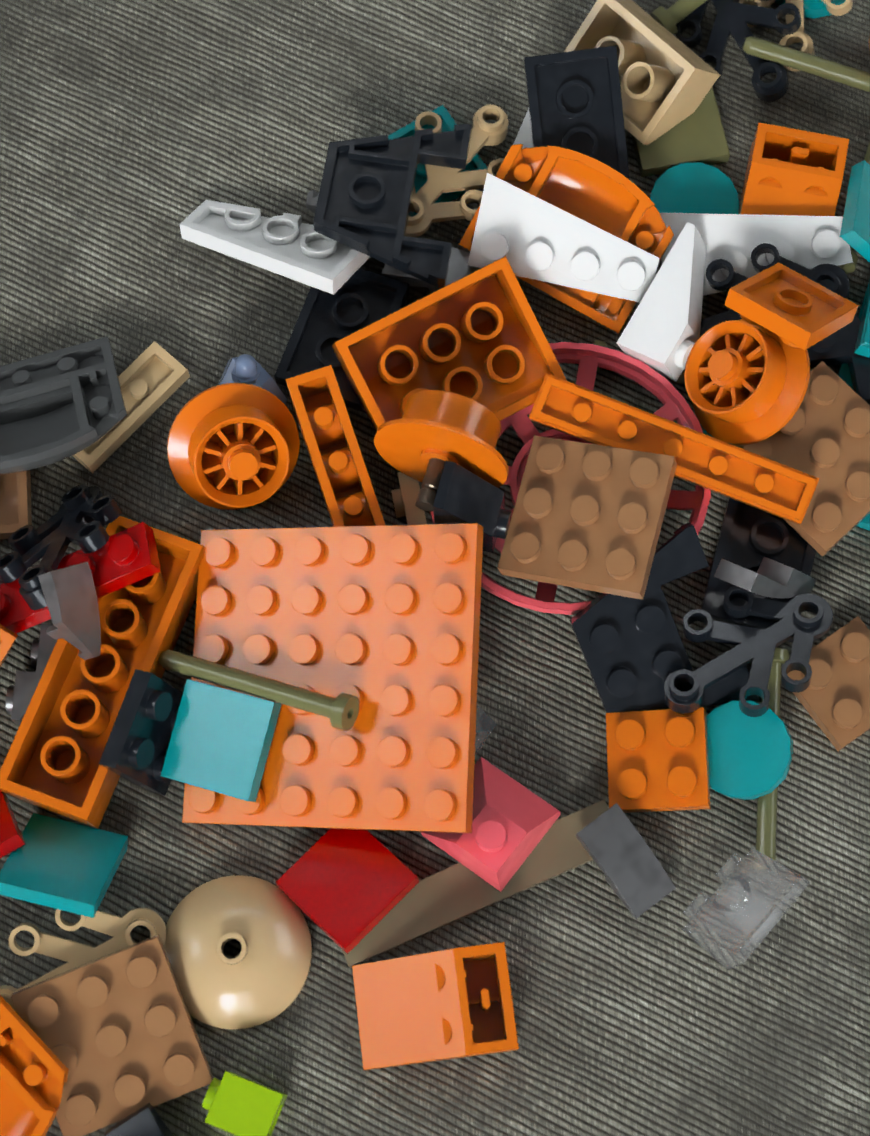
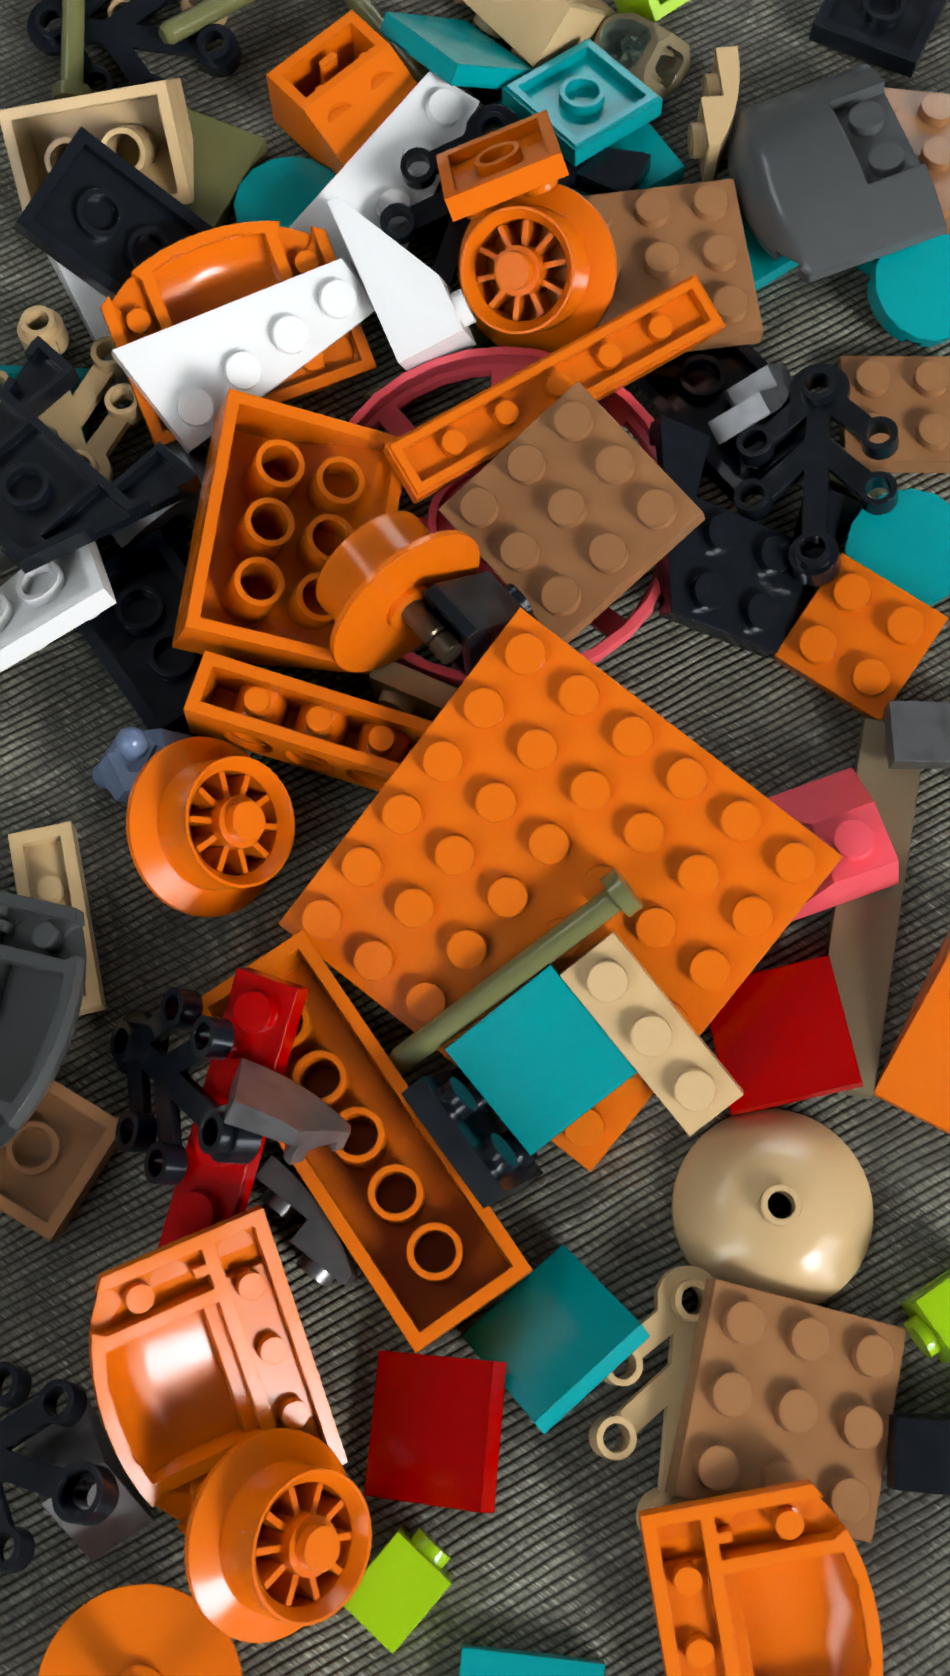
camera: 55 degrees left, 0 degrees up
(278, 794) = (652, 1033): none -> tan plate

